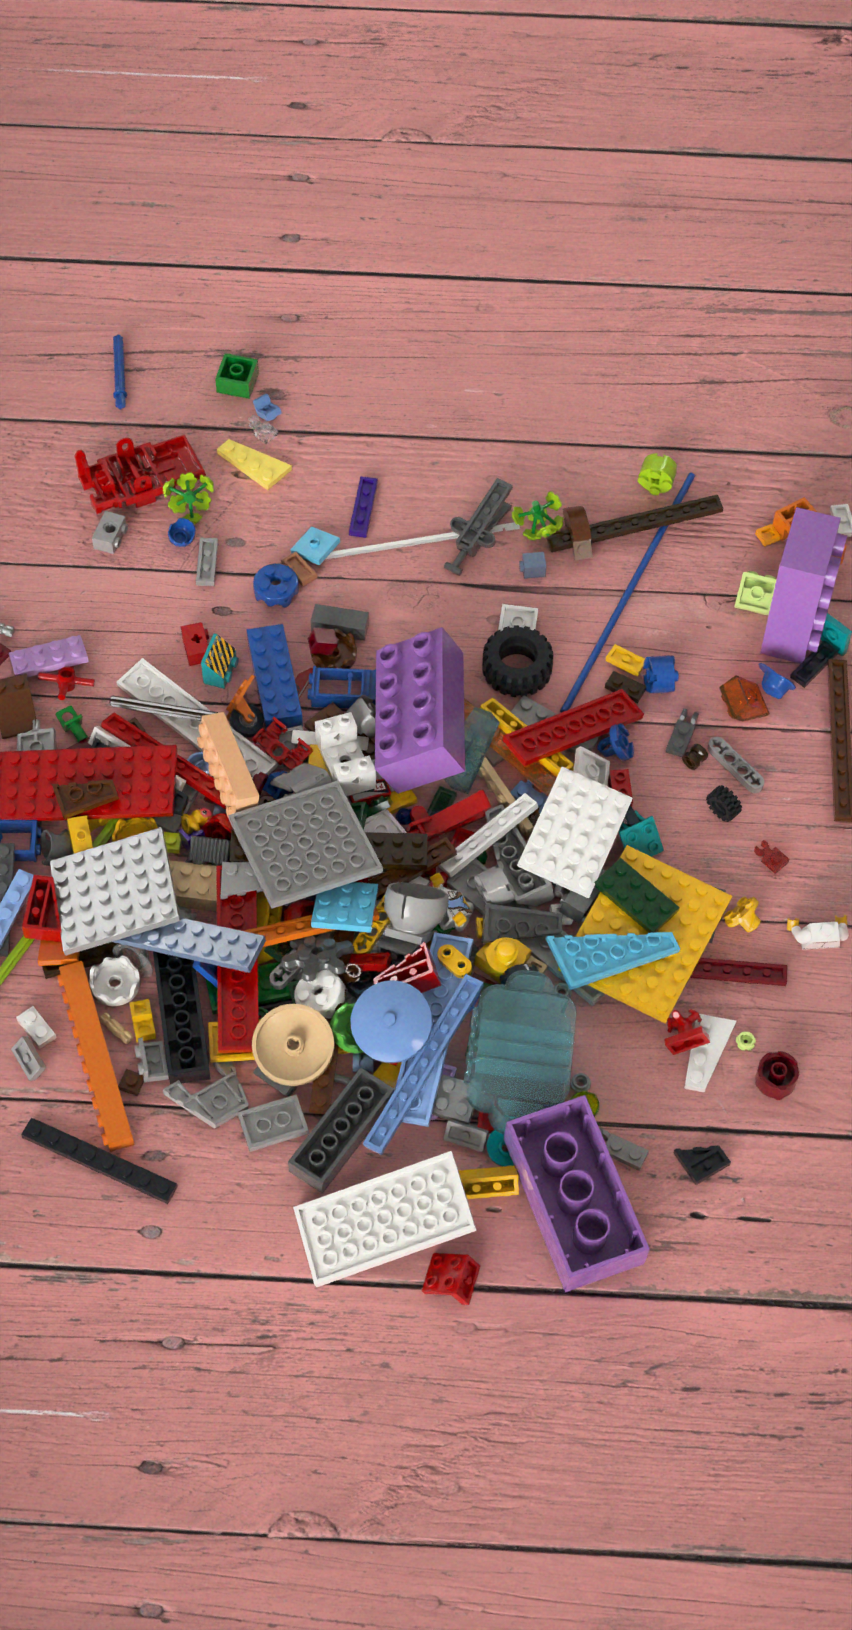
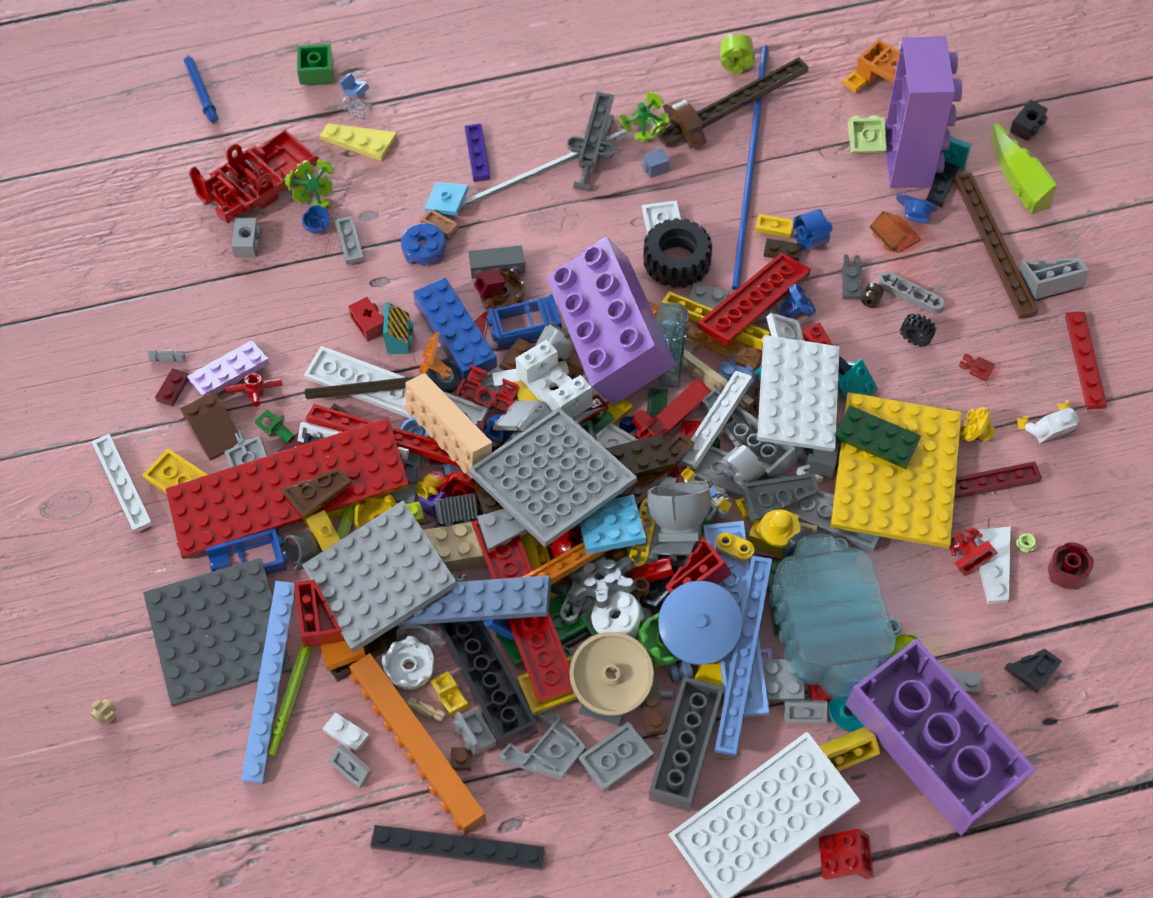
camera: 15 degrees left, 0 degrees up
(605, 955) = (870, 501): medium azure wing -> none

